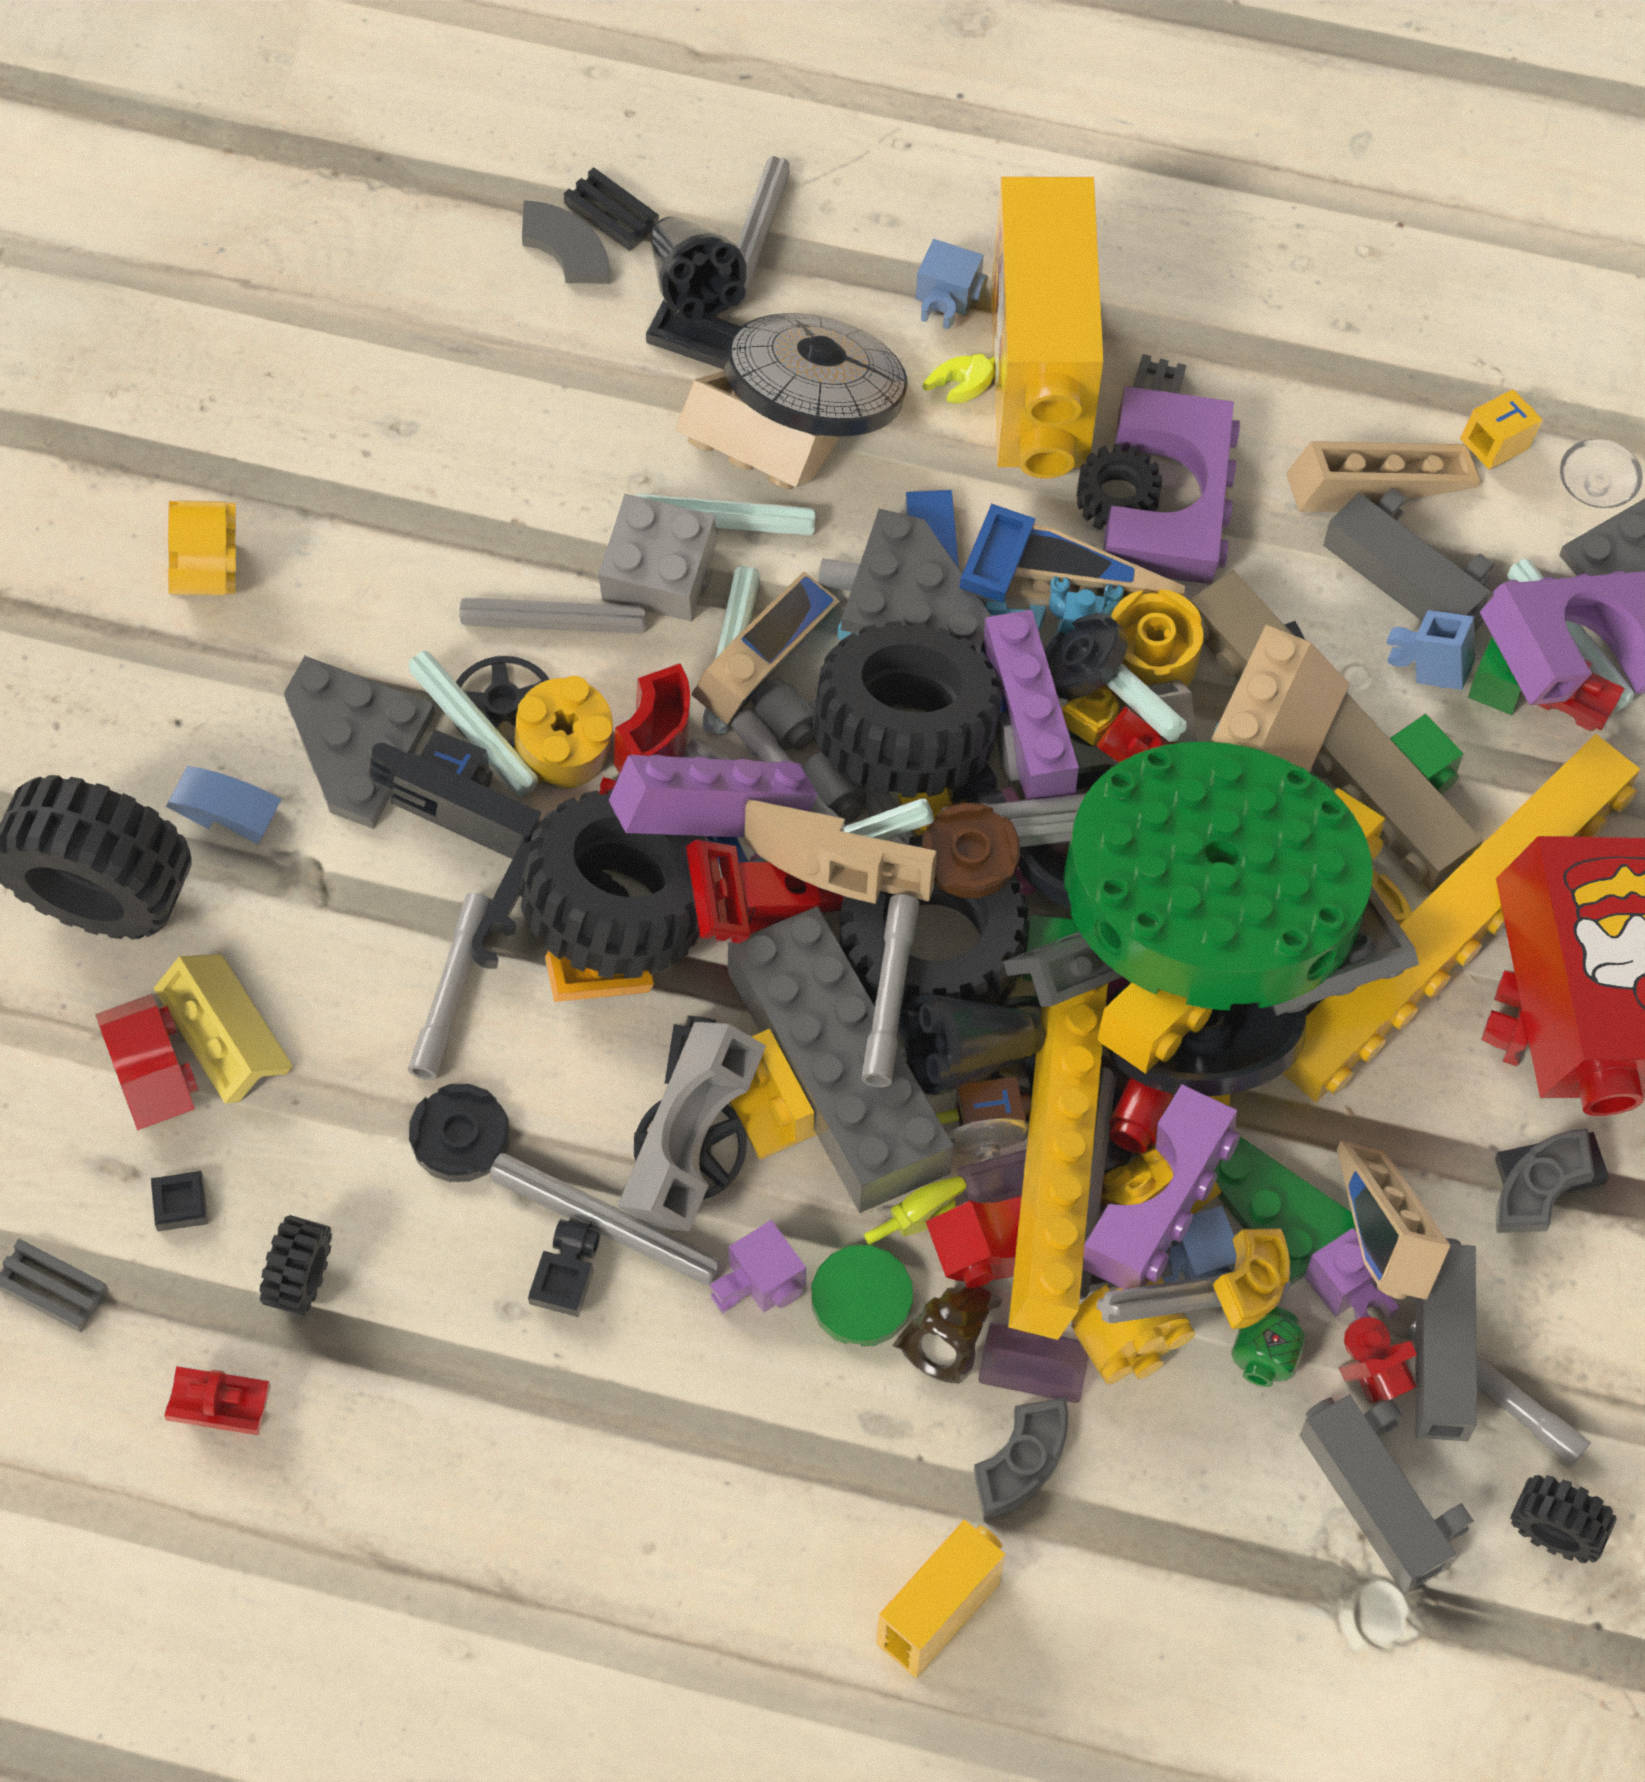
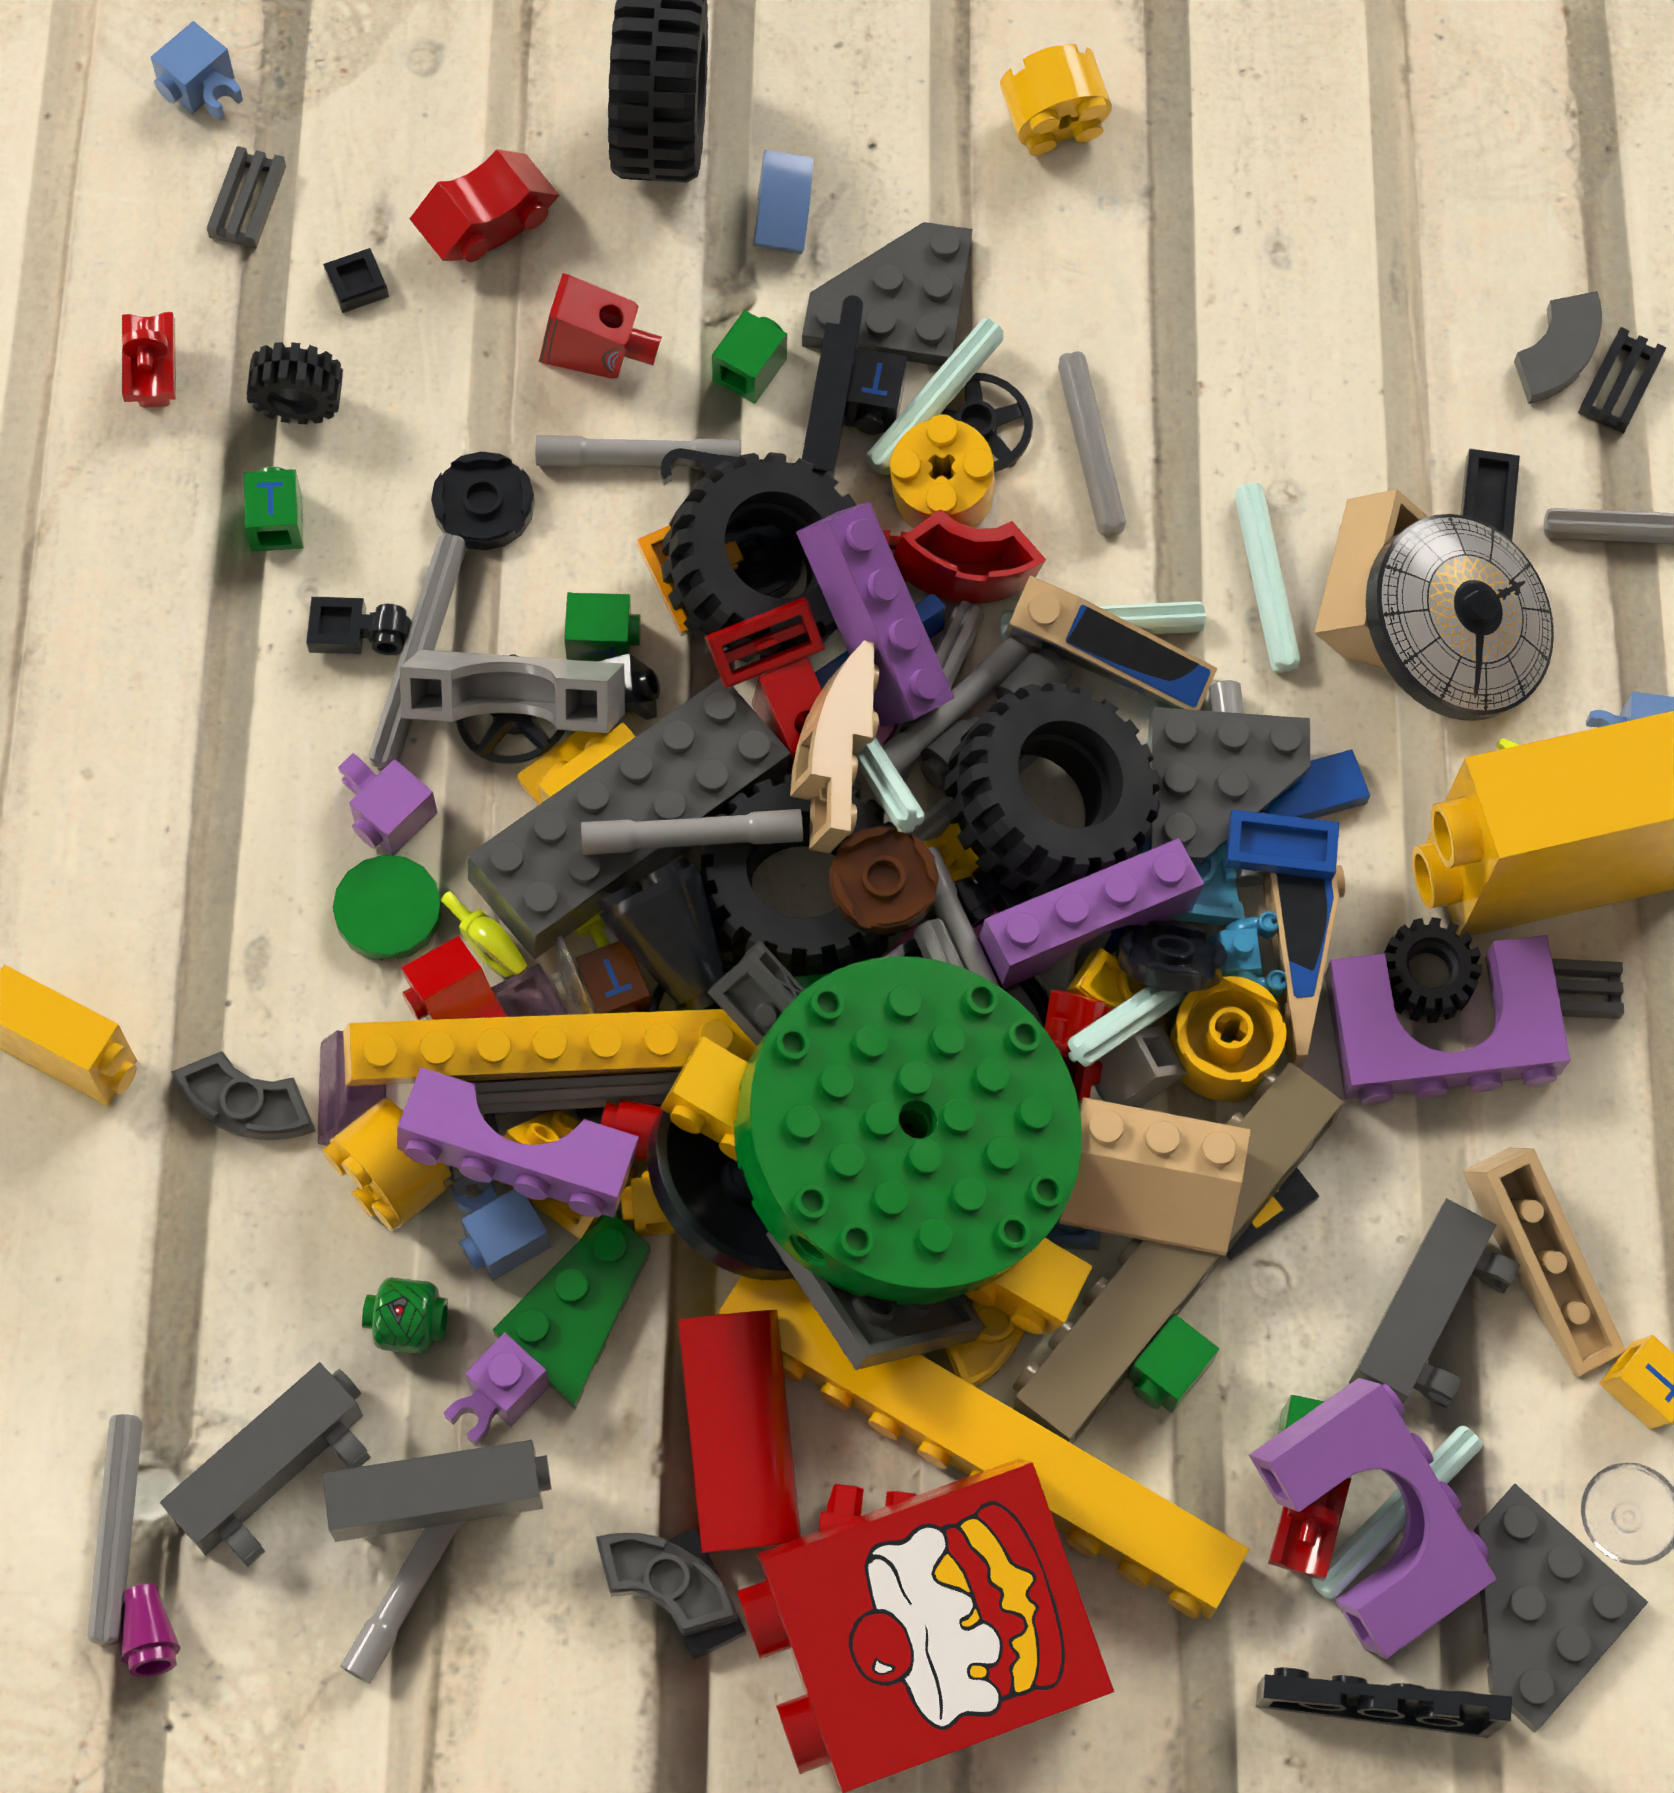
camera: 75 degrees right, 5 degrees up
(221, 1024) = (527, 277): light yellow panel -> none
(318, 991) = (594, 330): none -> red torso
(382, 866) = (749, 356): none -> green brick
(419, 1316) = (273, 509): none -> green brick
(630, 1052) = (600, 626): none -> green brick
(658, 557) = (1183, 519): light grey brick -> none
(696, 269) = (1553, 464): black cone -> none
(958, 1321) = (355, 990): dark brown hair -> none
(1160, 1299) = (421, 1210): light grey axle -> none
(1258, 1276) = (463, 1279): yellow tile -> none
(1379, 1365) = (402, 1425): red hips -> none
(1392, 1226) = (561, 1402): tan slope -> none
(1415, 1638) = (115, 1529): none -> light grey axle
(1429, 1092) = (739, 1430): none -> red brick
(1440, 649) = (1316, 1353): medium blue brick -> none
(1517, 1622) = (148, 1637): none -> magenta cone
(1563, 1518) = (259, 1655): black tyre -> none

